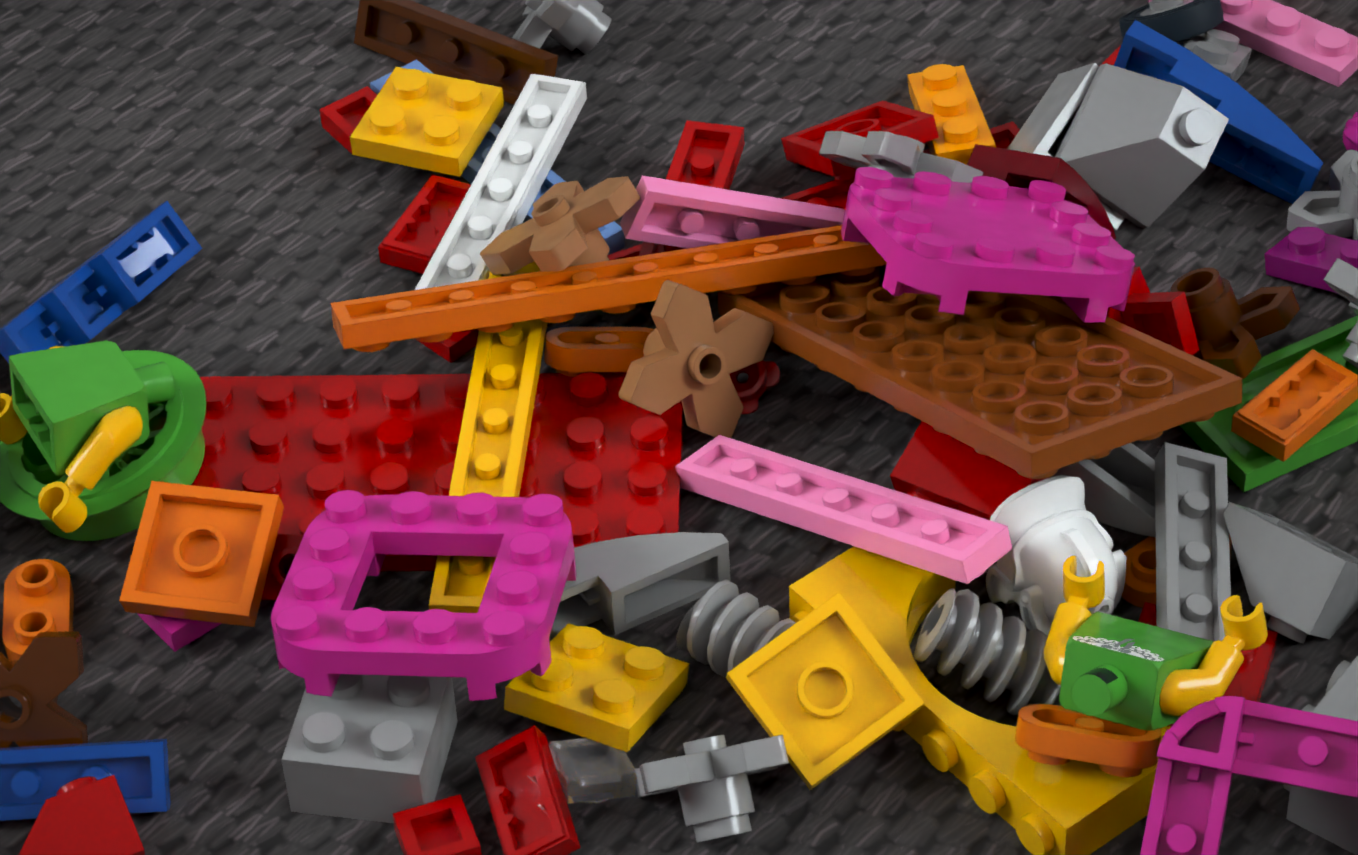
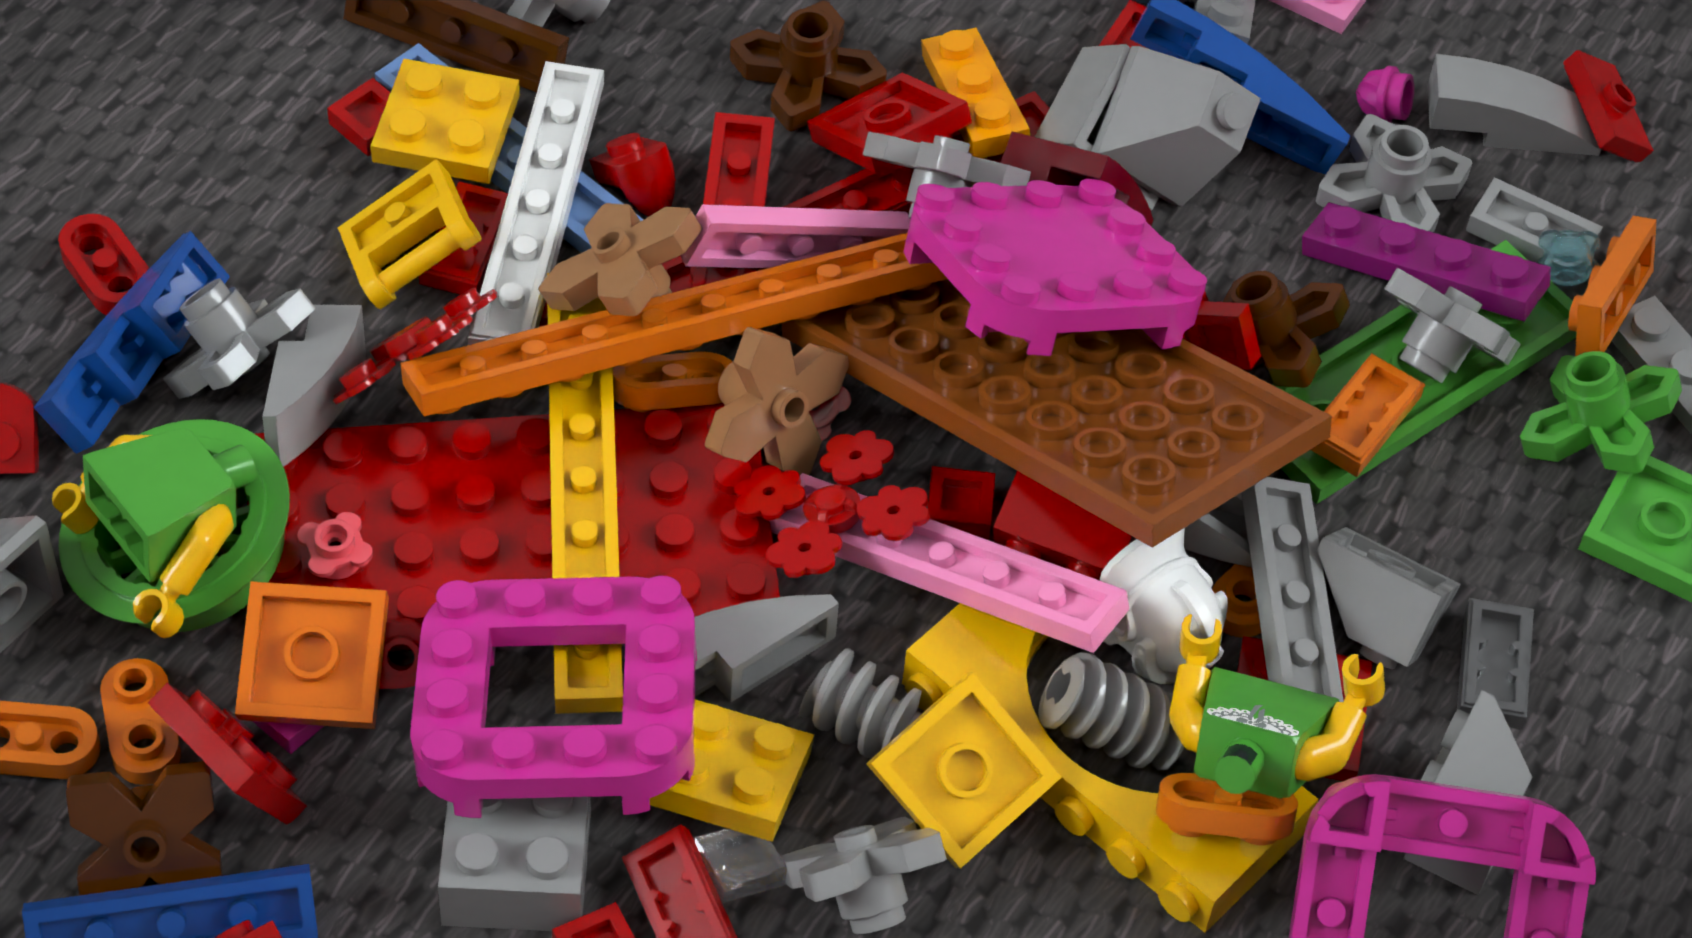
camera: 15 degrees left, 10 degrees up
(81, 223) = (110, 268): none -> red plate
(109, 633) = (227, 749): none -> red plate
(185, 284) = (231, 334): none -> light grey plant
(247, 466) = (339, 560): none -> coral plate
(255, 328) = (308, 377): none -> light grey slope
(359, 283) = (413, 342): none -> red plant
(372, 213) = (398, 223): none -> yellow plate
(604, 161) = (640, 169): none -> red plate
(738, 457) = (832, 507): none -> red plant
(787, 86) = (805, 63): none -> reddish brown plant
(871, 458) = (962, 499): none -> red plate

